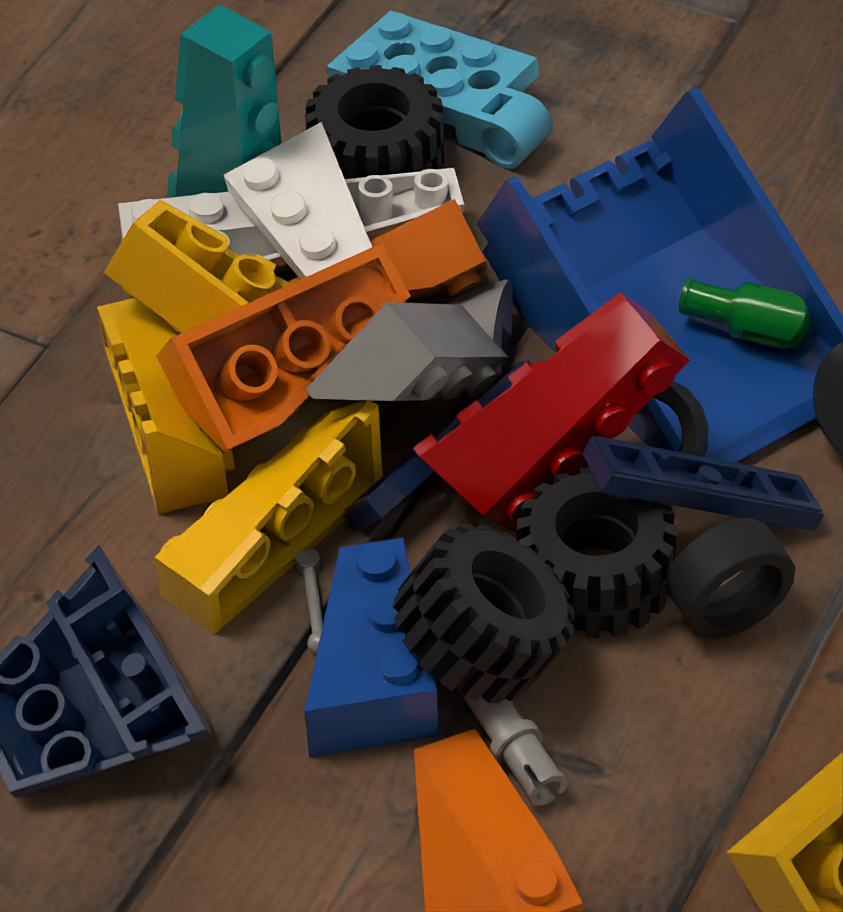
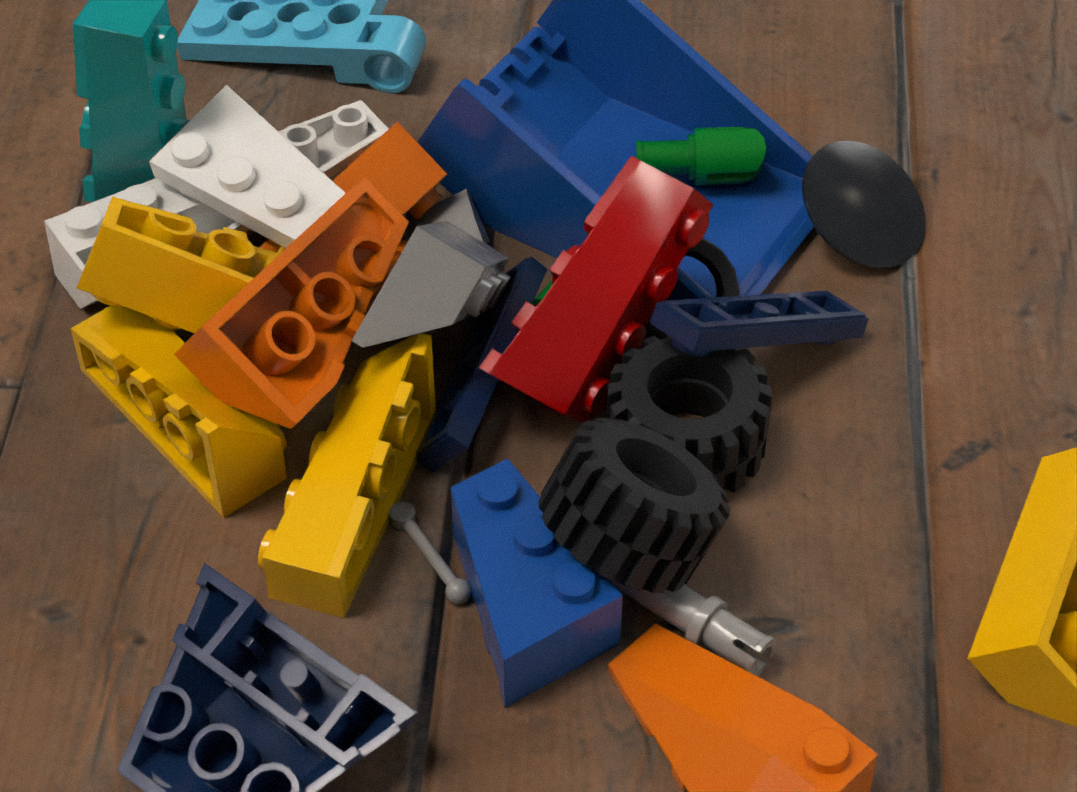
camera: 25 degrees left, 0 degrees up
(380, 121) = (270, 67): black tyre -> none
(715, 557) = (829, 400): black tyre -> none

